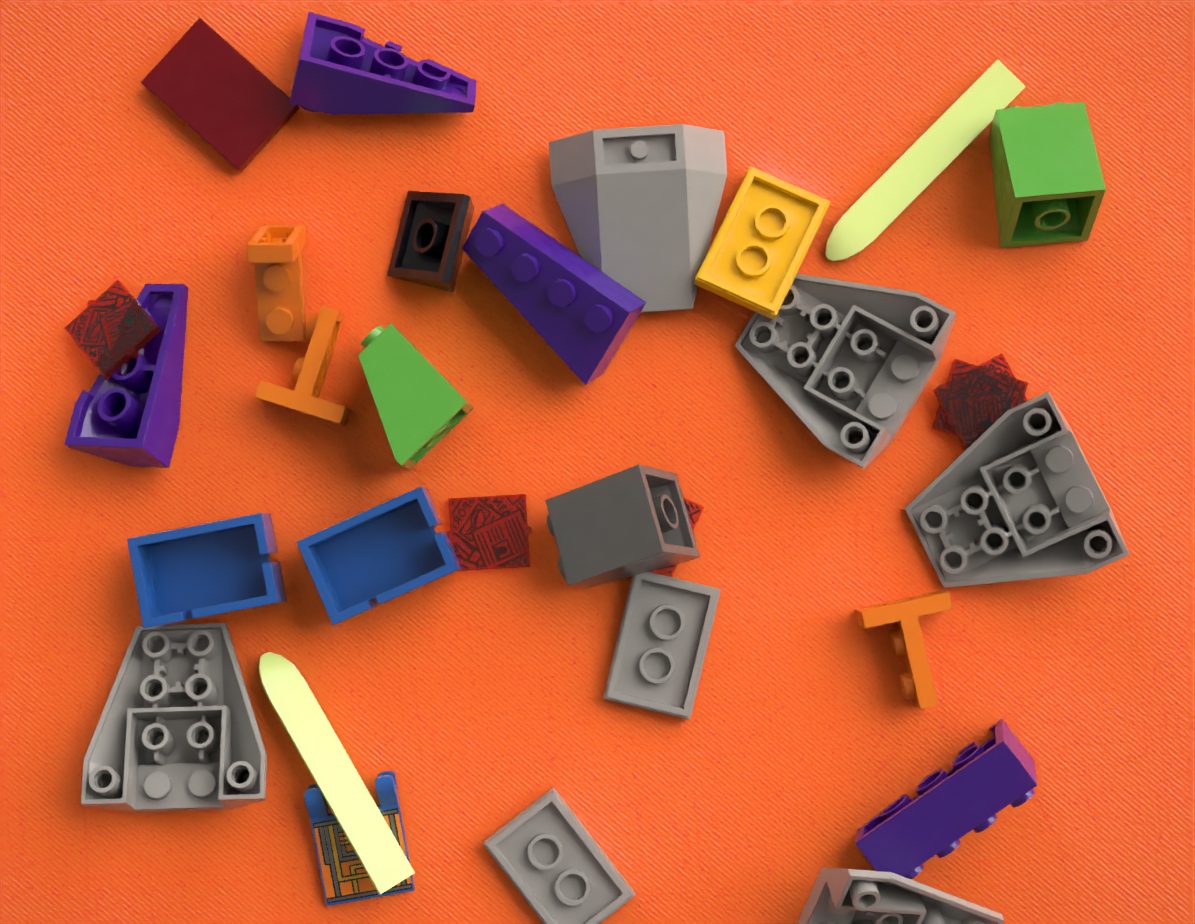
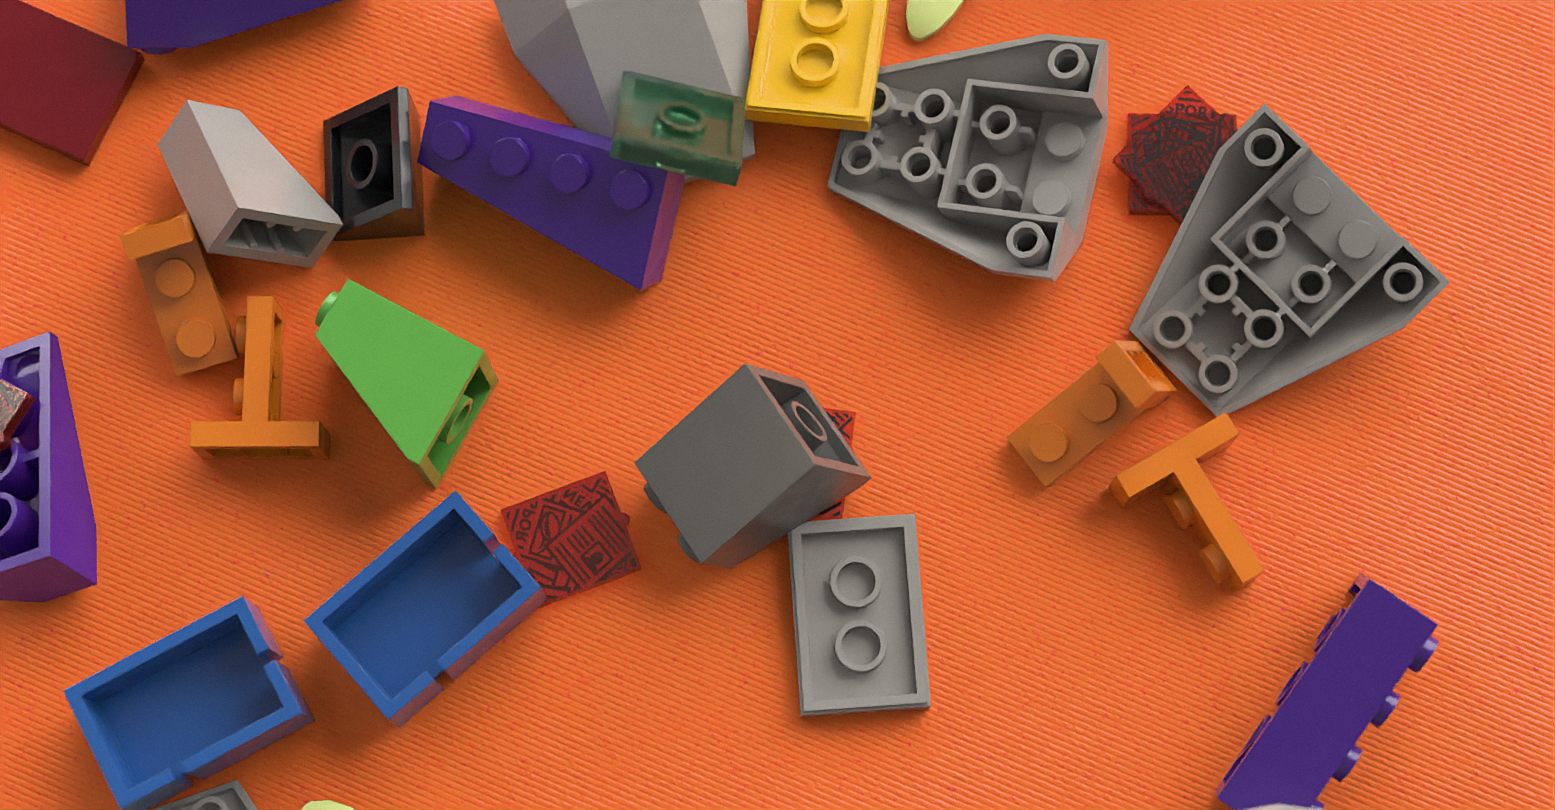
camera: 15 degrees left, 10 degrees down
(339, 228) = (243, 189): none -> light grey slope
(645, 284) = (679, 128): none -> clear green plate
(861, 559) = (1091, 410): none -> orange bracket

